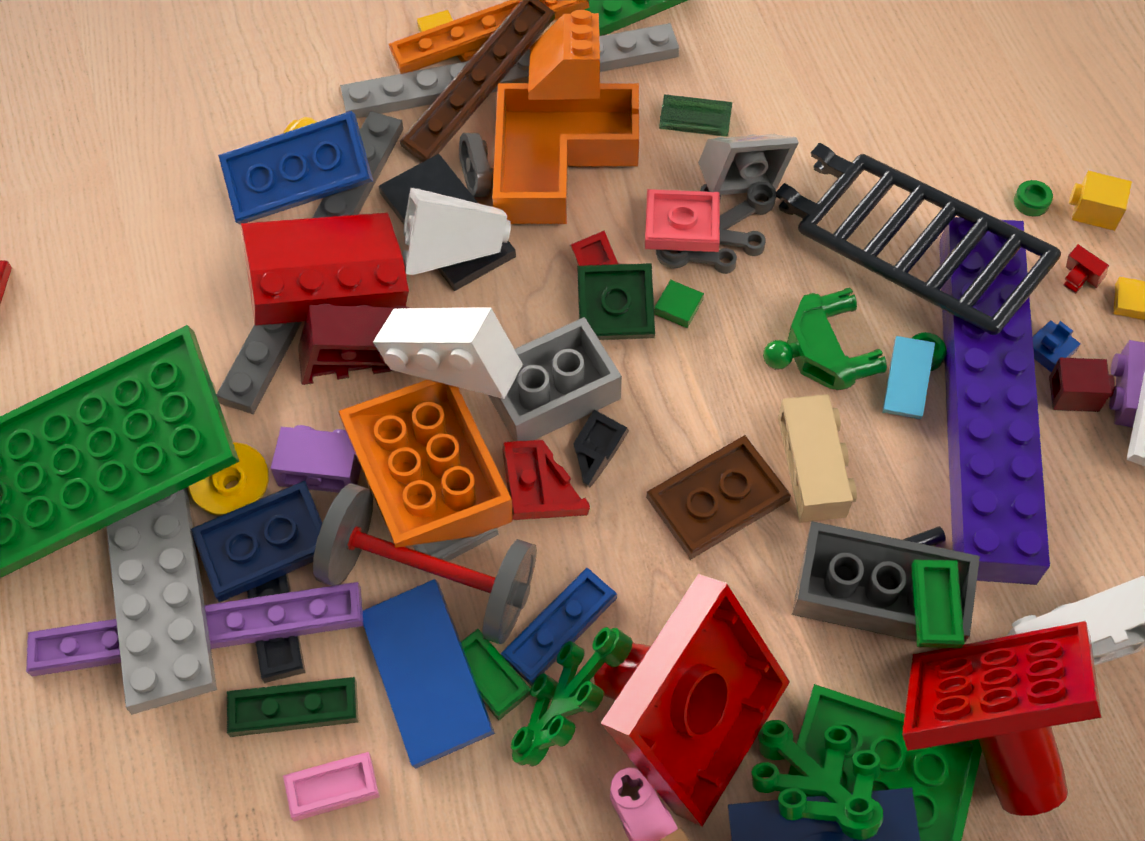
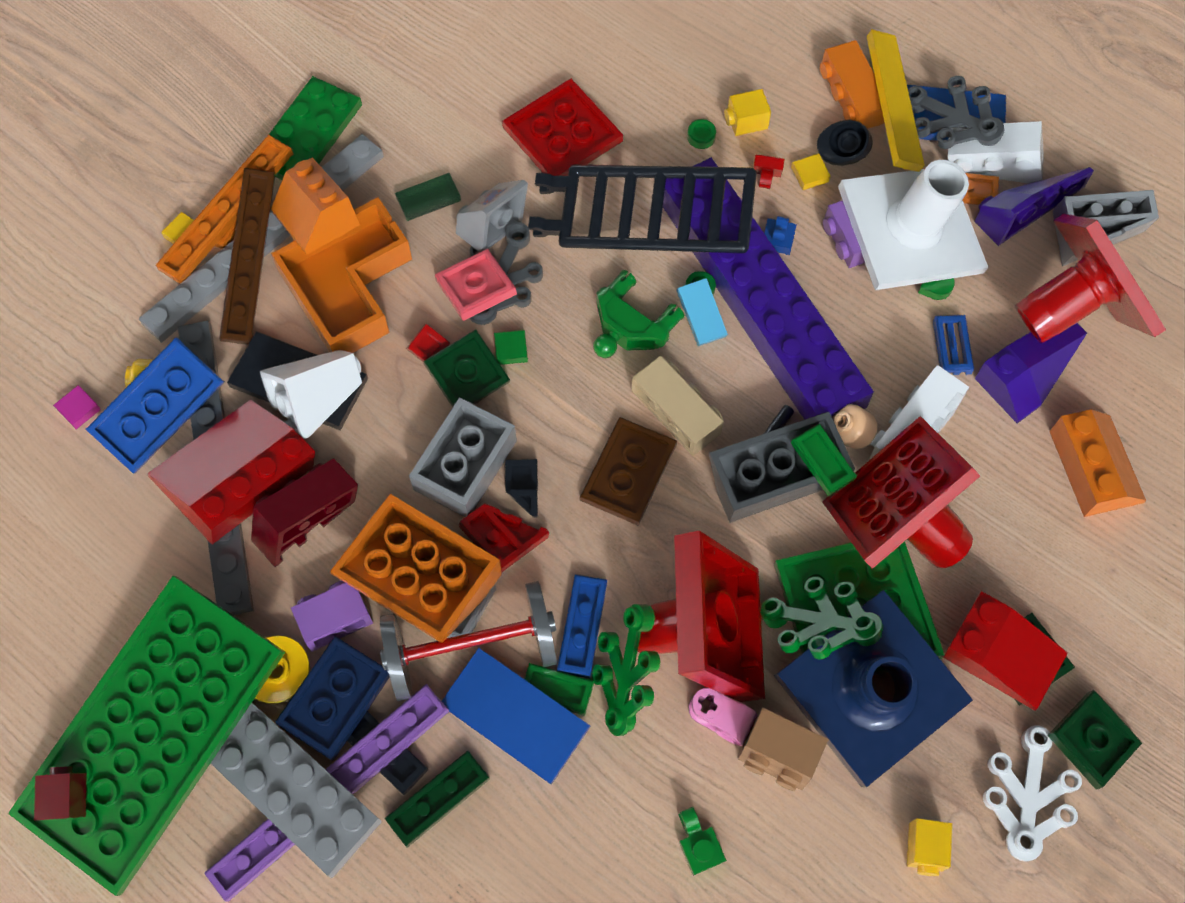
camera: 35 degrees left, 5 degrees up
(230, 134) = (77, 407): none -> dark pink tile
(331, 786) = (503, 833): bright pink tile -> none
(451, 348) = (382, 477): white wedge -> none
(474, 164) = (291, 325): dark grey plate -> none
(881, 118) = (562, 130): none -> red plate
(1003, 593) = (855, 426): none -> light nougat head
(1080, 384) = (814, 253): dark red brick -> none

